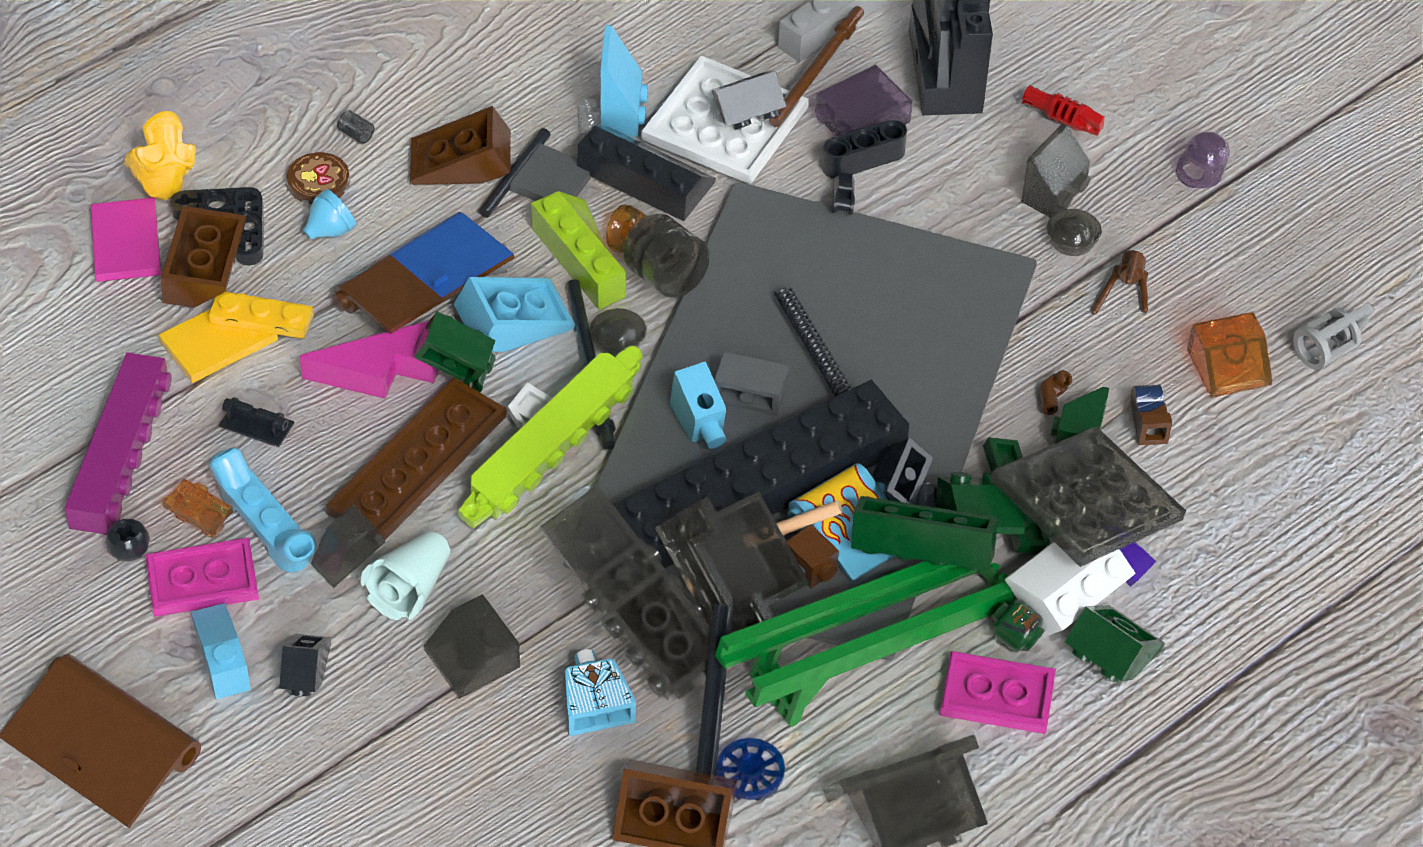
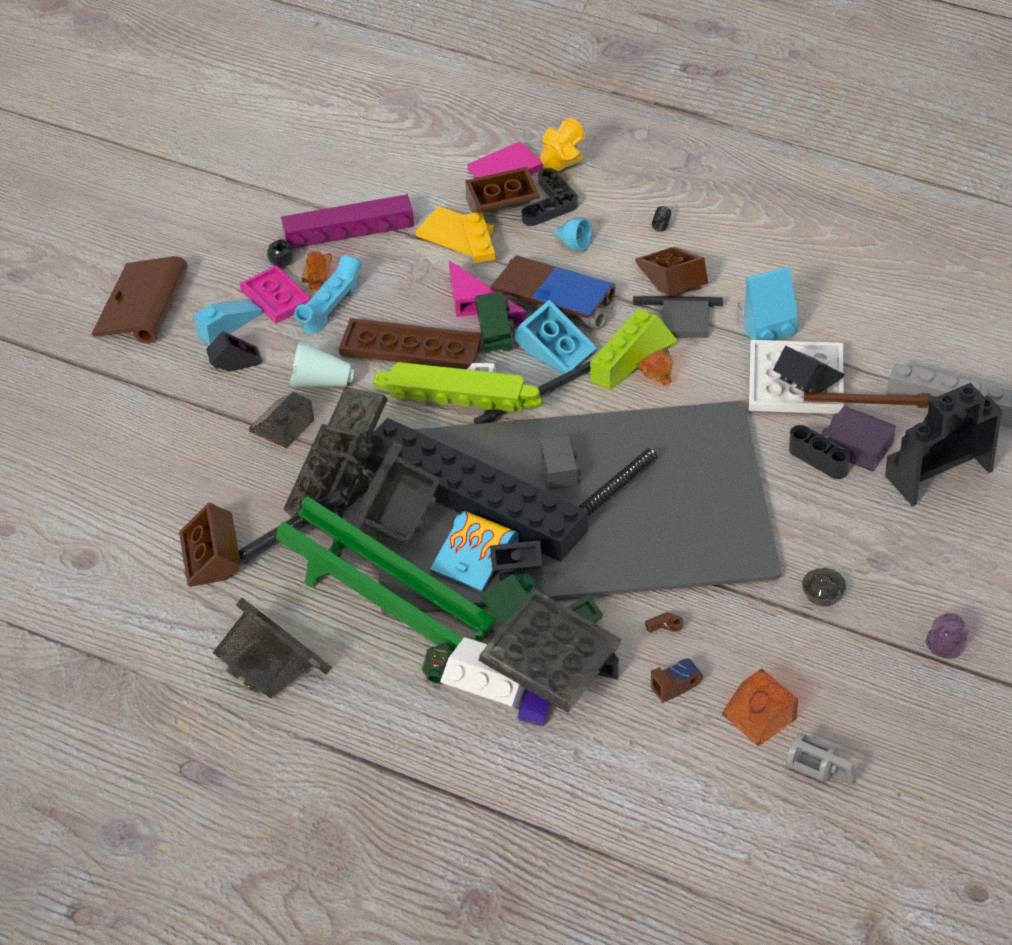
camera: 70 degrees right, 5 degrees down
(255, 422) = (398, 268): black hinge -> none
(315, 173) = (609, 220): tile -> none
(346, 546) = (326, 334): clear smoke slope -> none
(597, 695) = (273, 482): medium azure torso -> none
(616, 330) = (571, 393): clear smoke hat -> none
(642, 171) = (720, 353): black slope -> none
(666, 255) = (636, 382): clear smoke wheel -> none
(698, 405) = (517, 441): medium azure torso -> none
(751, 767) = (261, 575): clear blue wheel -> none
(810, 517) = (448, 518): light nougat bar -> none
(814, 555) = (430, 538): reddish brown brick -> none
(843, 193) = (766, 454): black bar -> none
(924, 533) = (464, 575): dark green brick -> none
(998, 692) = (386, 675): dark pink tile -> none
(1055, 173) = (864, 552): clear smoke slope -> none
(1064, 110) = (942, 543): red hinge -> none
(1081, 414) = (643, 645): dark green slope -> none
(1112, 642) = (456, 718): dark green slope -> none
(1130, 271) = (807, 627): reddish brown plant -> none

